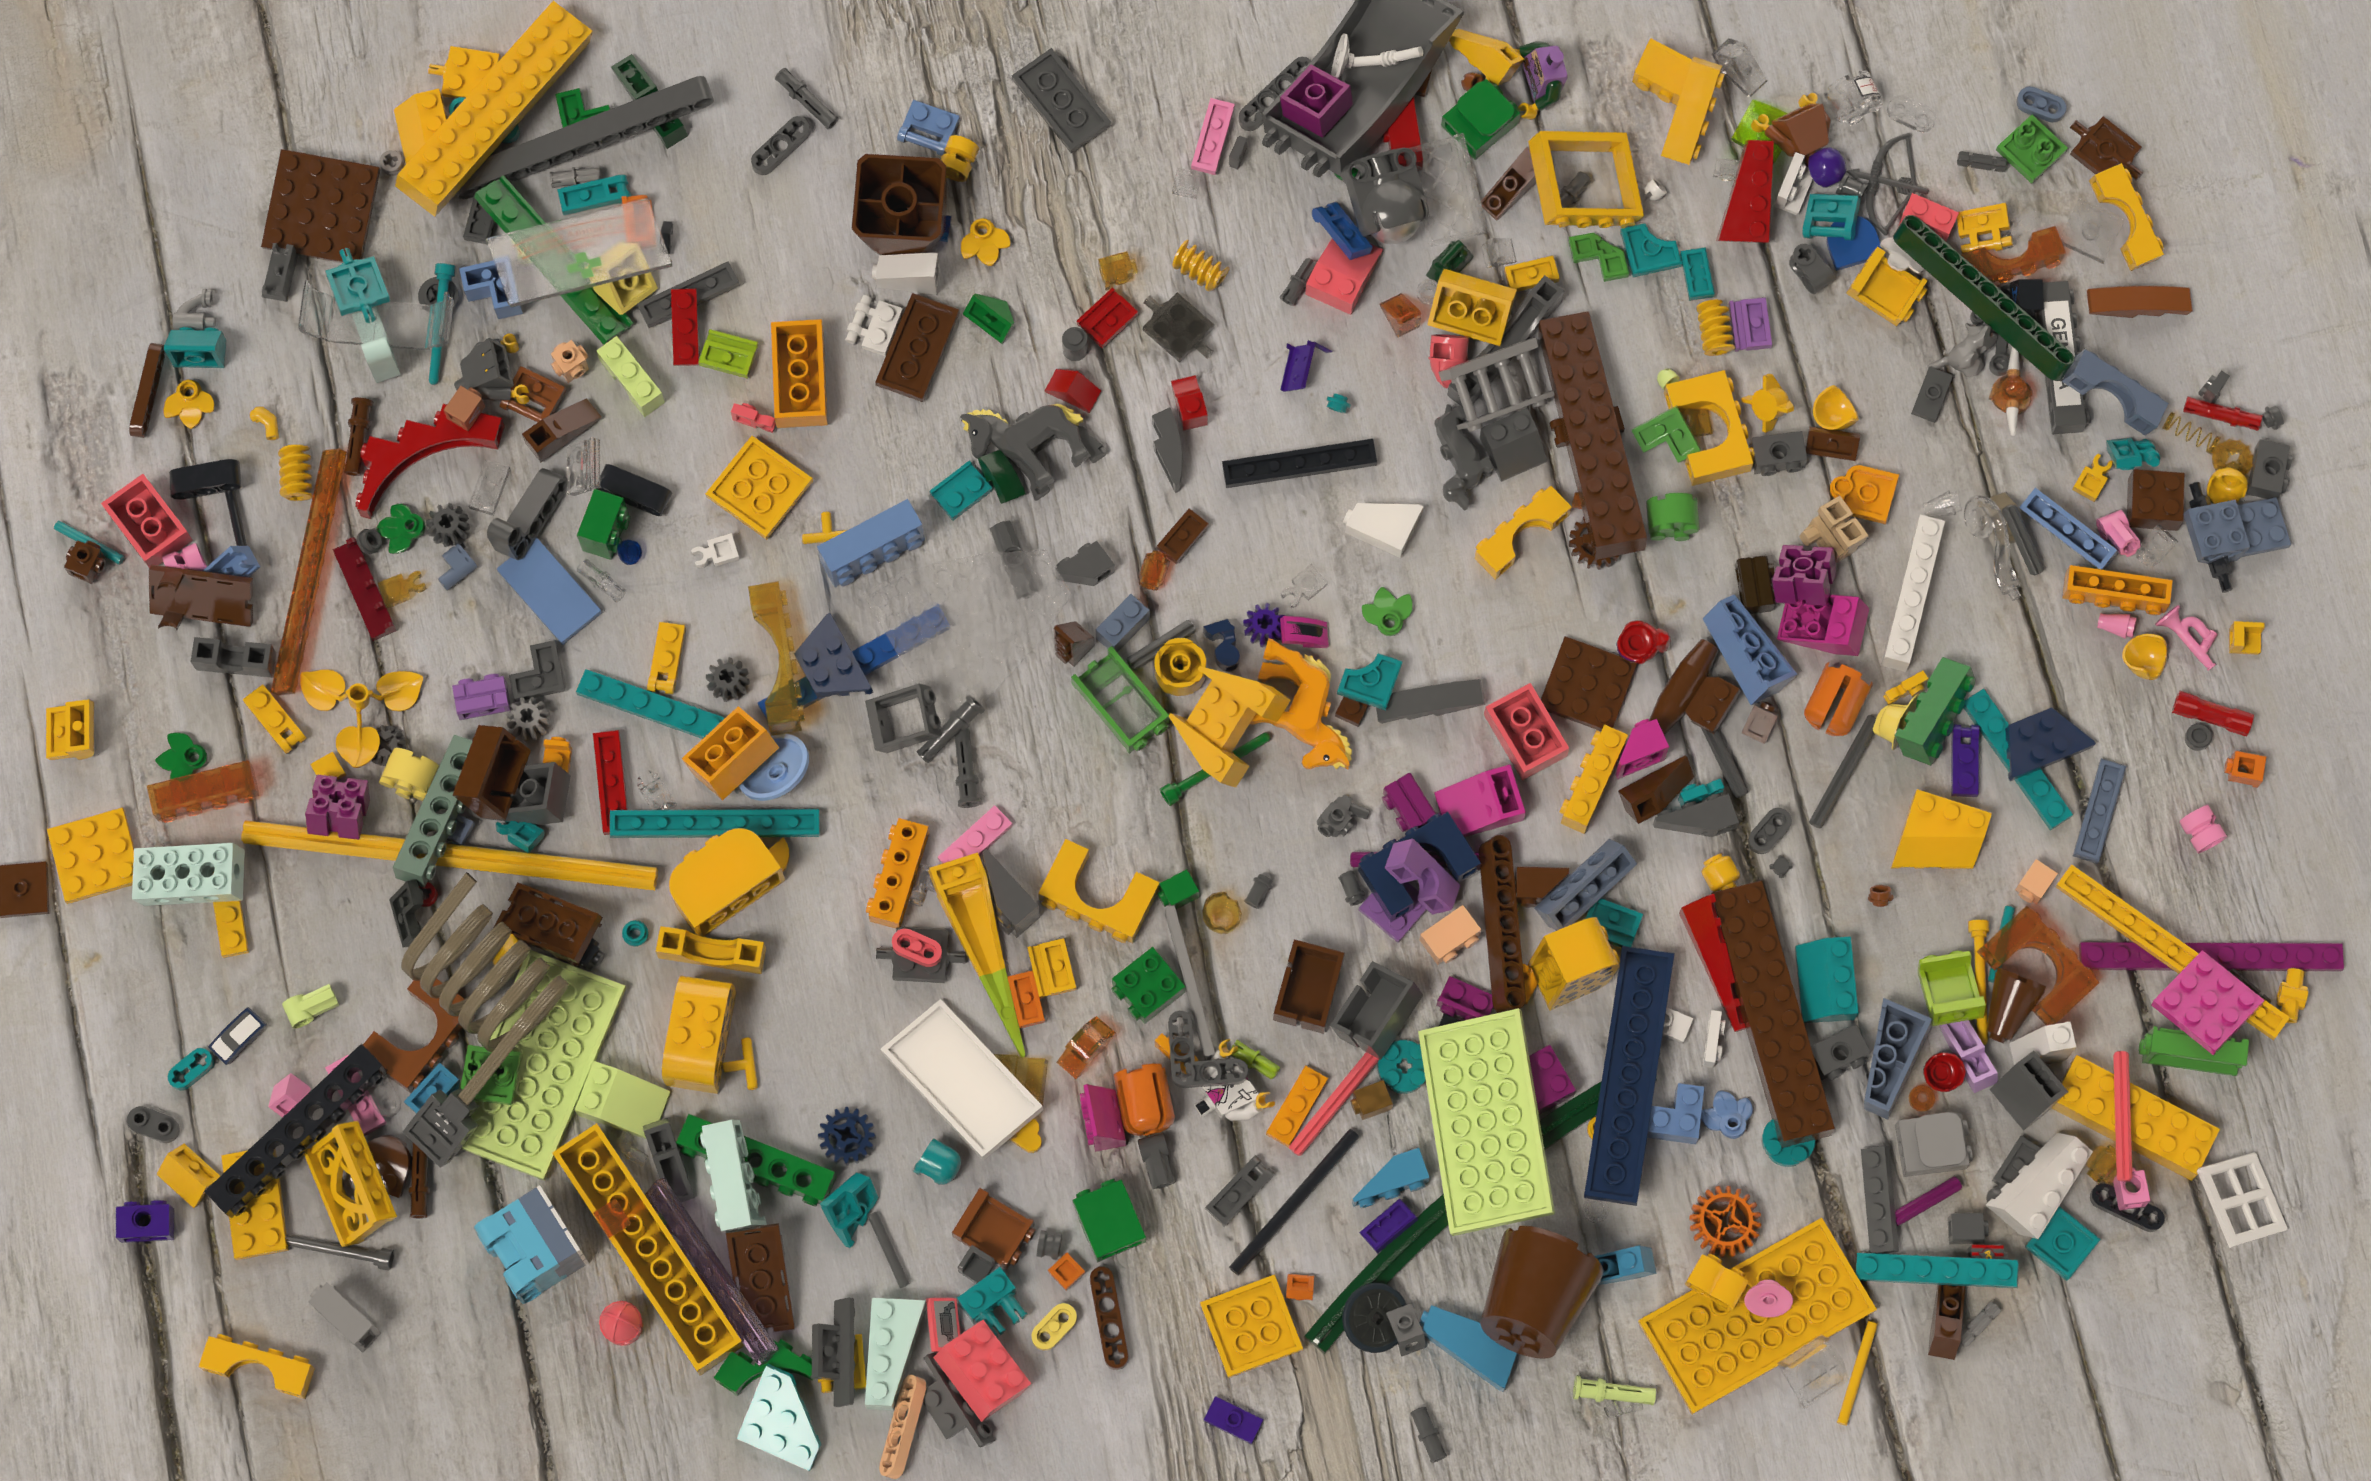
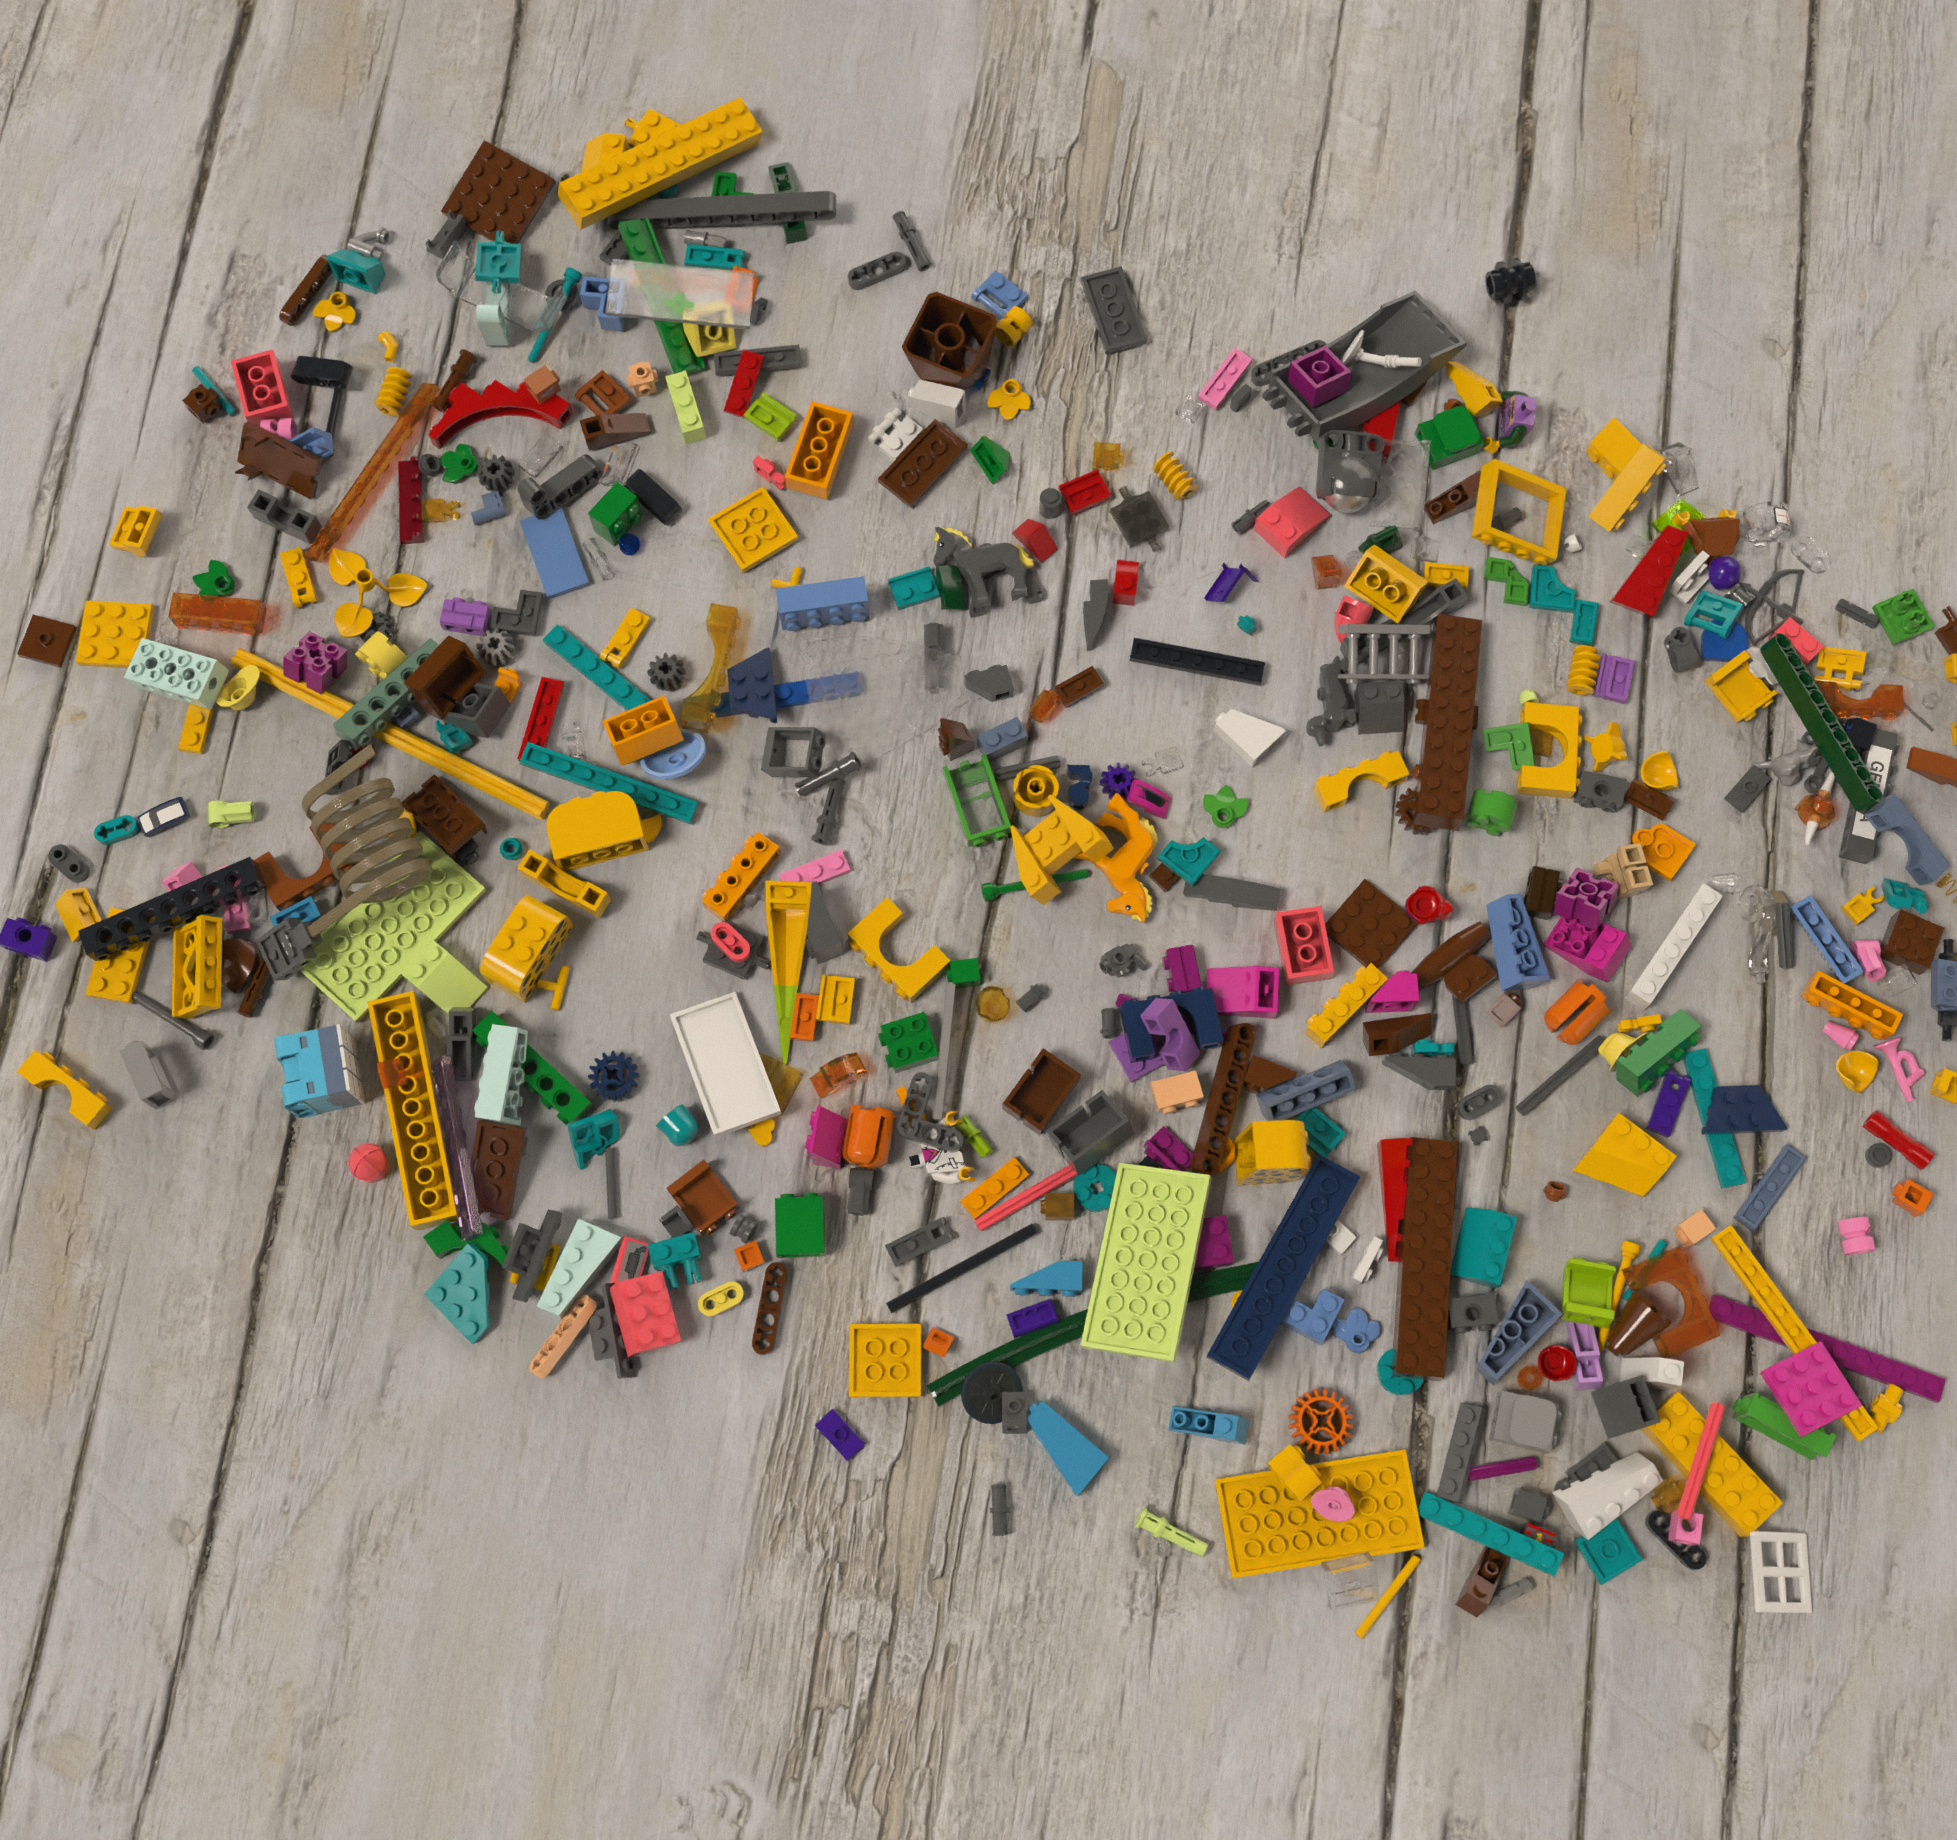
camera: 20 degrees right, 0 degrees up
(265, 867) = (240, 690): none -> light yellow piece
(328, 766) = (325, 629): yellow tile -> none
(489, 370) = (575, 364): dark grey torso -> none
(502, 1083) = (352, 926): bright green plate -> none
(720, 550) = (702, 568): white plate -> none
(1342, 230) = (1302, 487): blue plate -> none
(1537, 1290) = (1135, 1424): reddish brown cone -> none
(1720, 873) = (1424, 1122): yellow head -> none
(2041, 103) = (1924, 582): sand blue plate -> none

